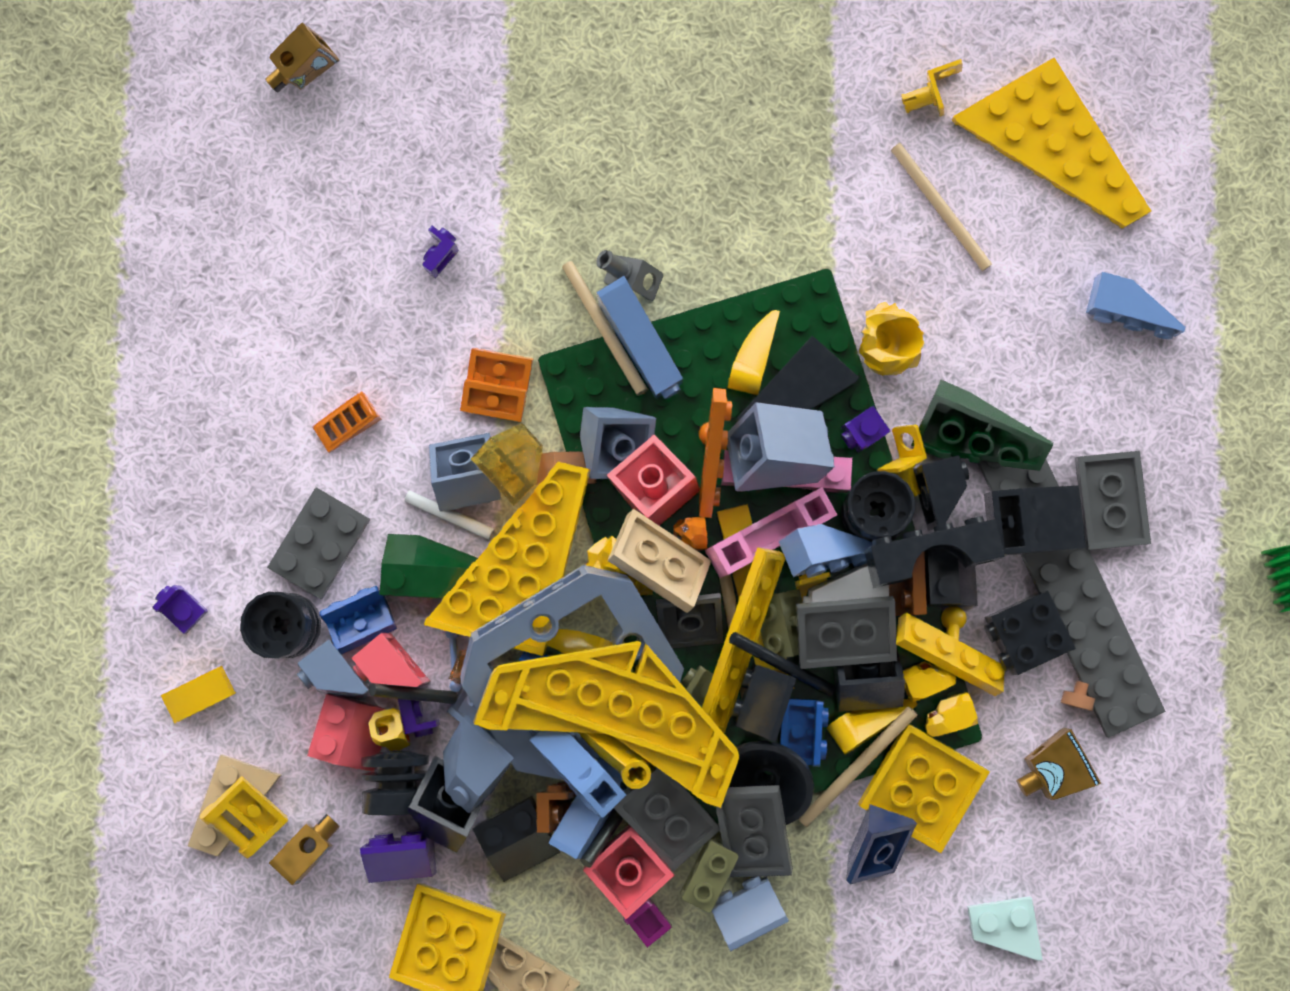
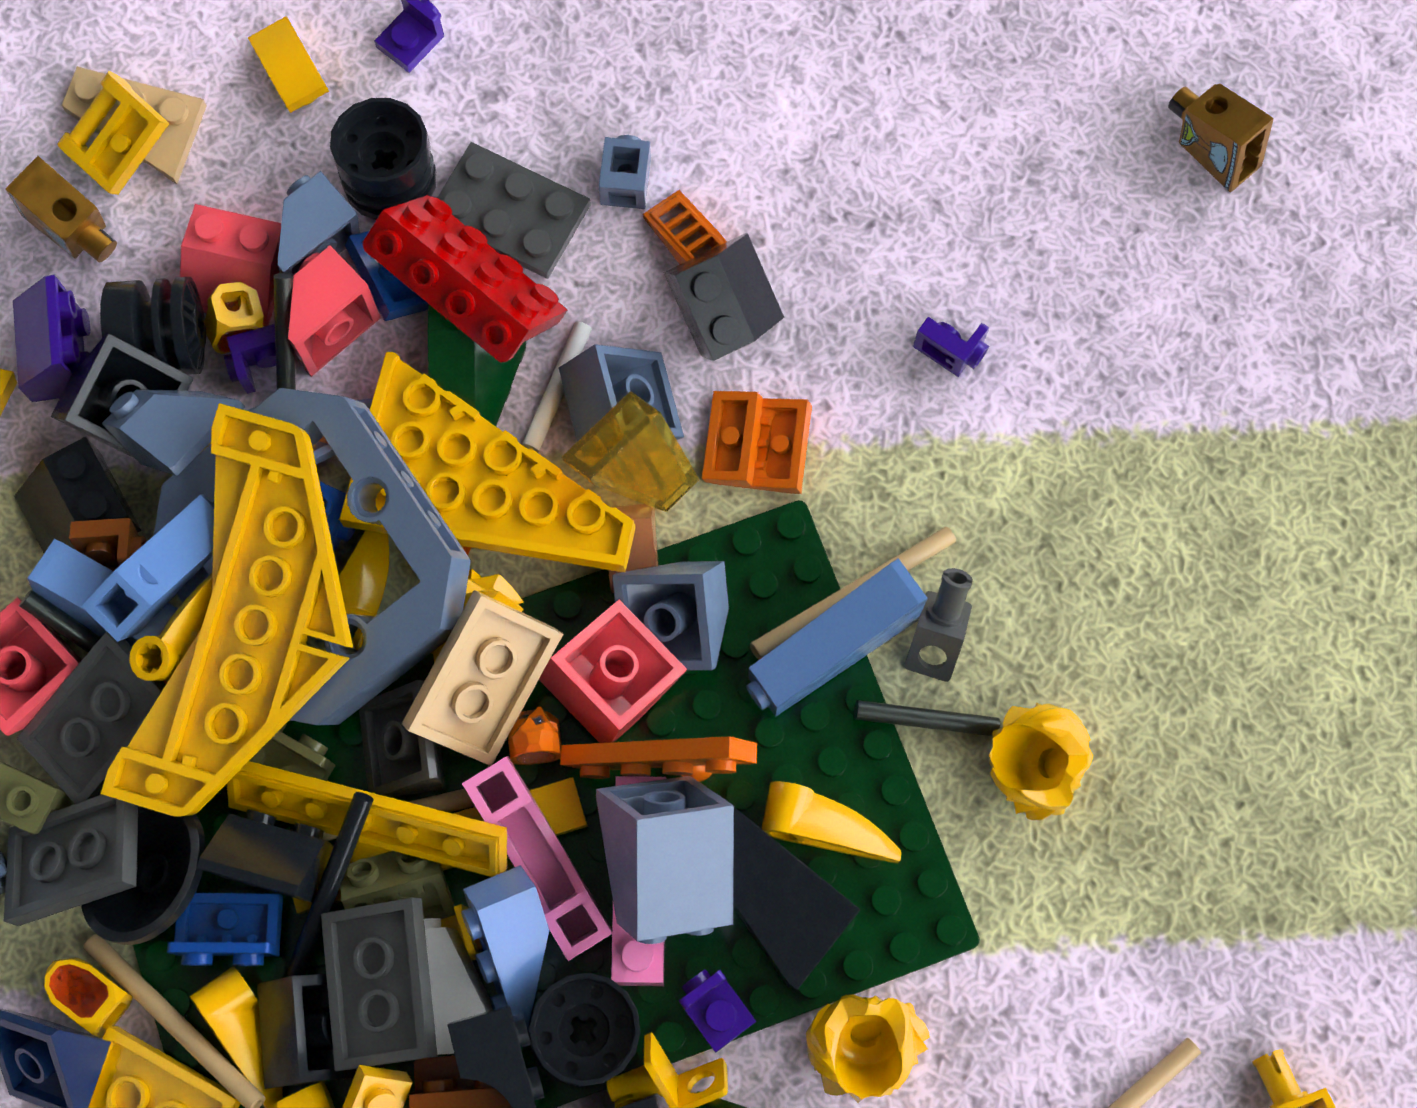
camera: 85 degrees right, 10 degrees down
(285, 456) = (624, 188): none -> sand blue brick
(374, 570) = (462, 275): none -> red bracket
(398, 398) = (725, 297): none -> black slope
(688, 288) = (925, 718): none -> pearl dark grey bar
(720, 219) = (1040, 758): none -> yellow hair
(837, 823) = (85, 994): none -> rock

